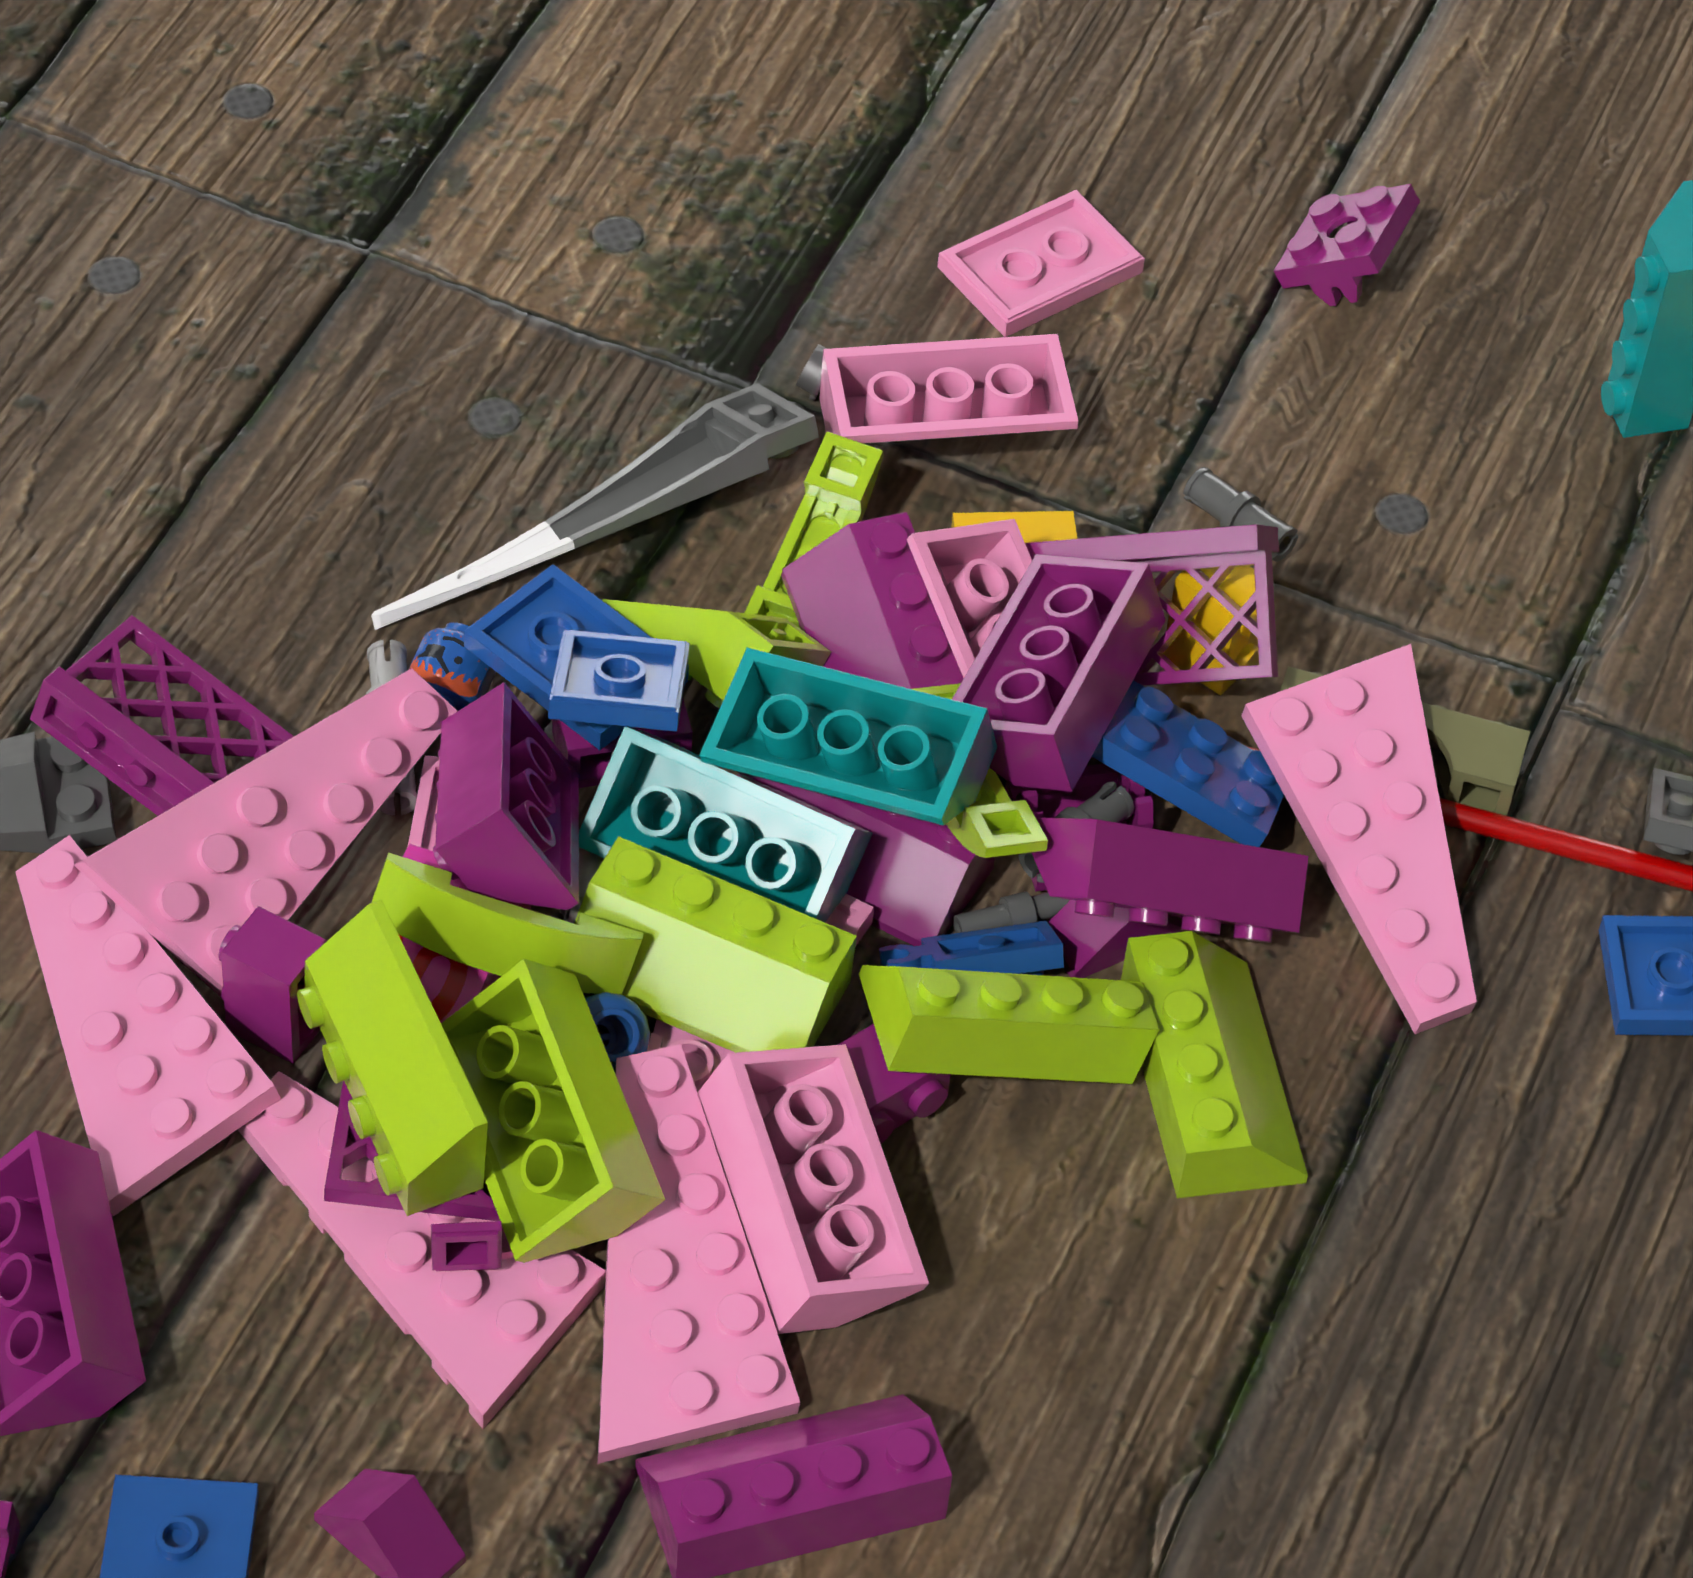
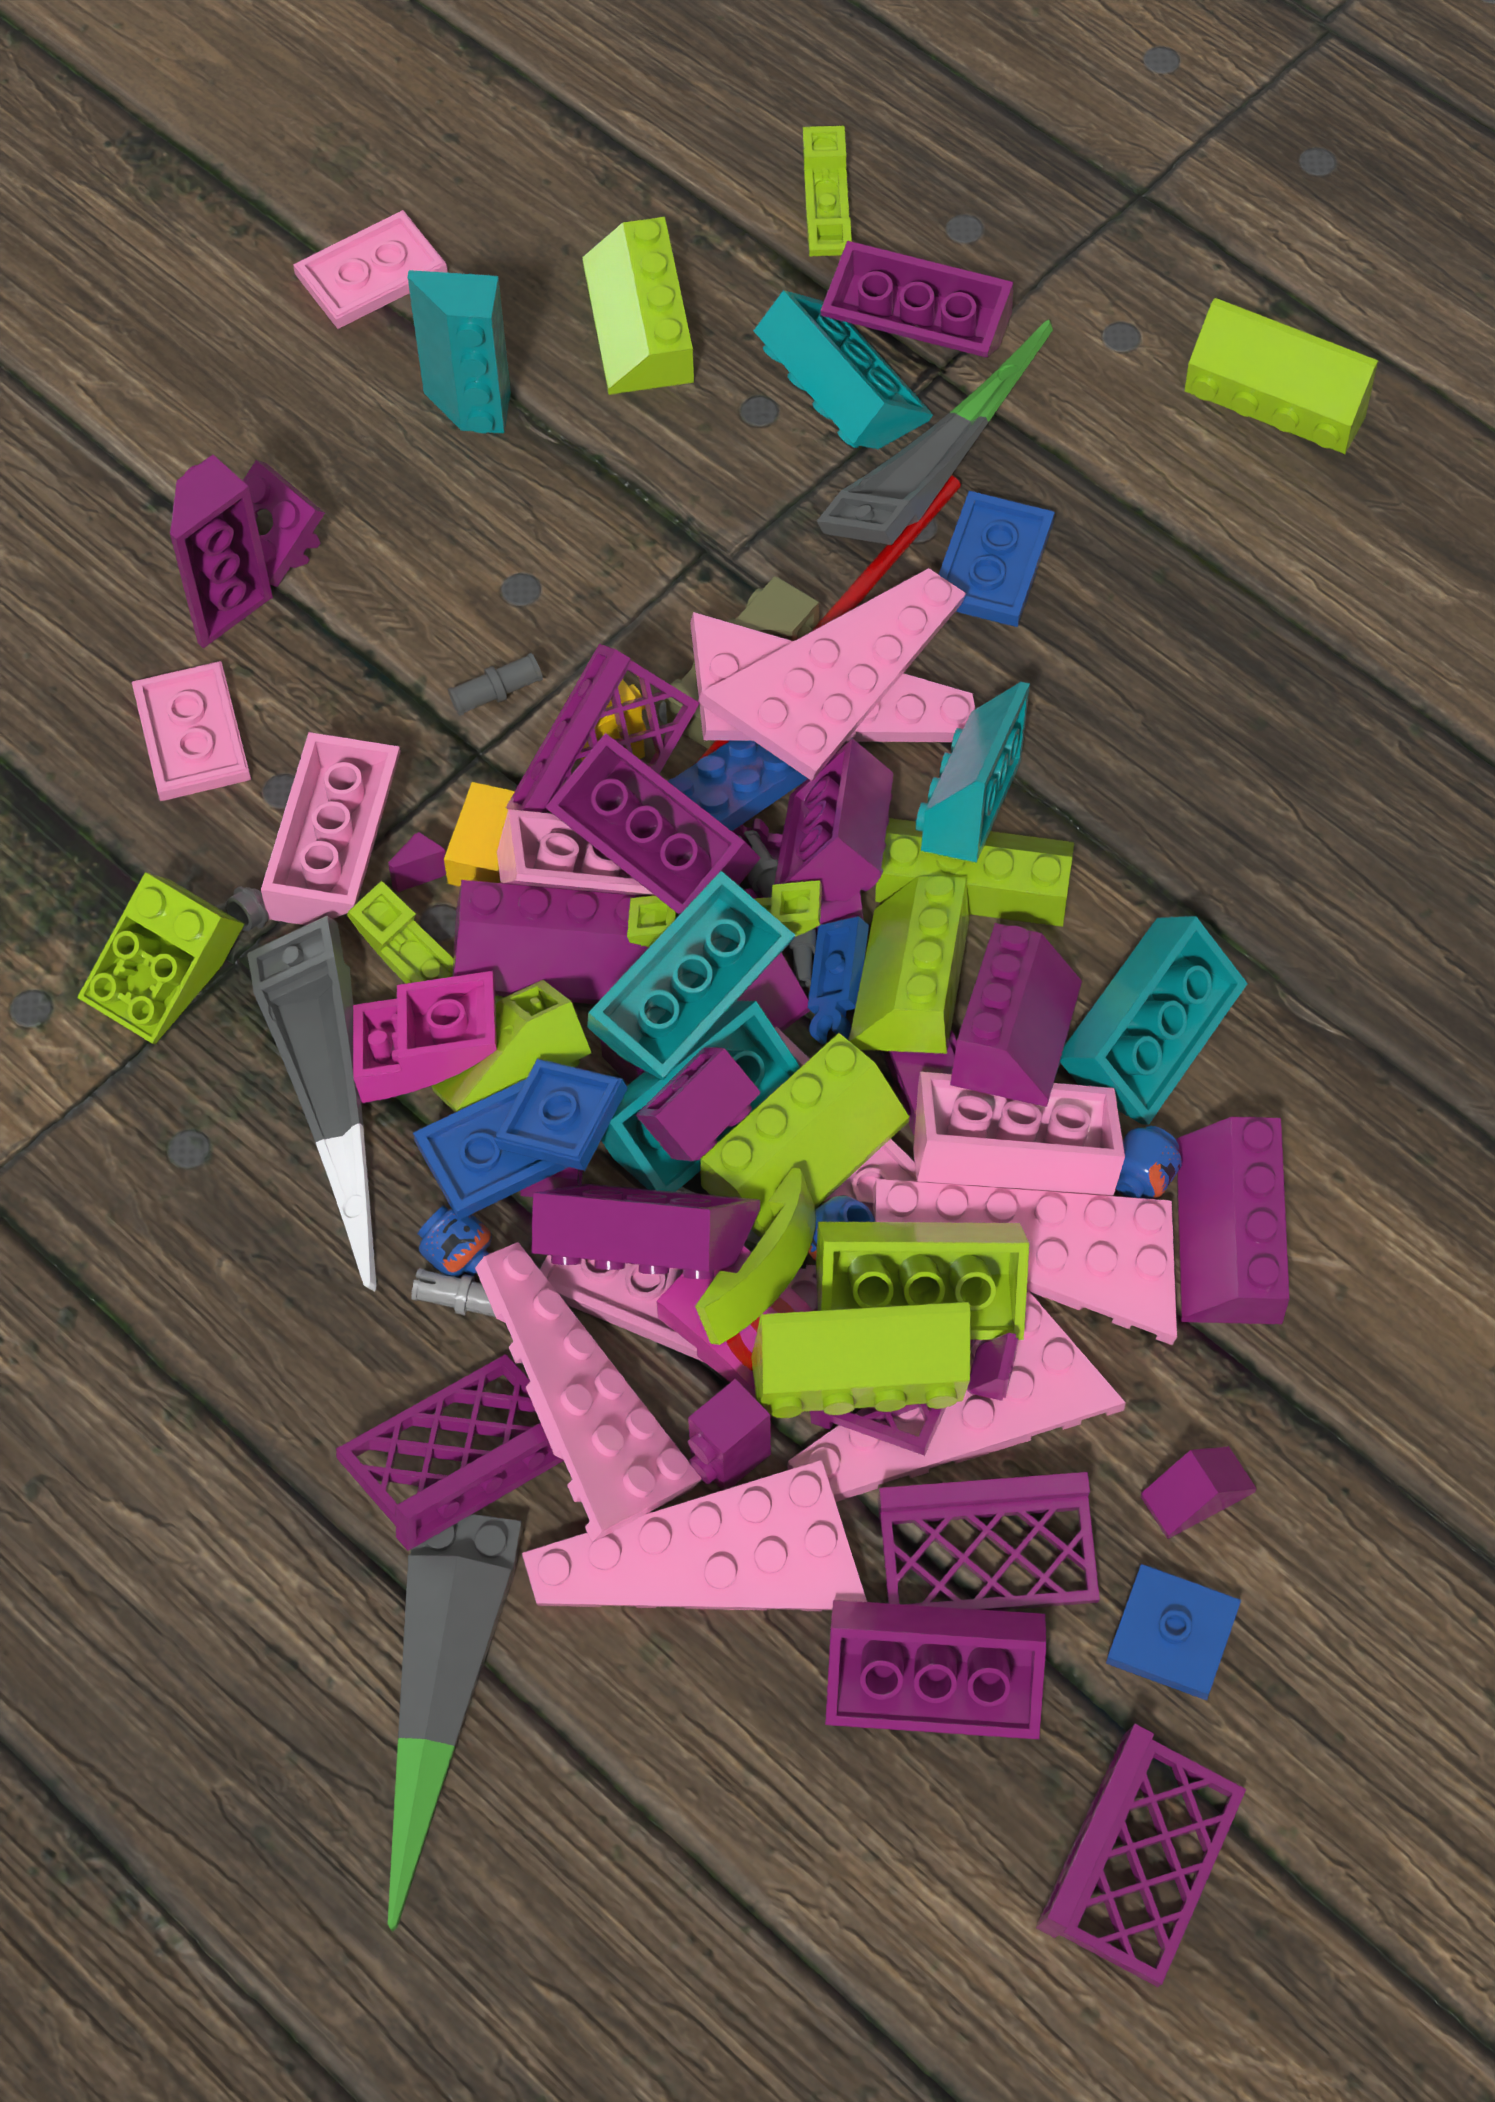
camera: 65 degrees left, 10 degrees up
(292, 1302) = (990, 1499): none -> magenta fence
(687, 810) = (699, 1104): none -> magenta brick
(700, 550) = (423, 1034): none -> dark pink slope
(726, 311) = (159, 957): none -> lime slope
(841, 1357) = (1148, 1163): none -> blue head
(944, 493) = (417, 863): none -> magenta slope
(978, 1136) = (1016, 1018): none -> magenta slope
(1064, 1319) = (1154, 1016): none -> teal slope
(1243, 166) = (217, 549): none -> magenta slope
(1314, 1009) = (975, 777): none -> teal slope
(1382, 811) = (826, 683): none -> bright pink wing

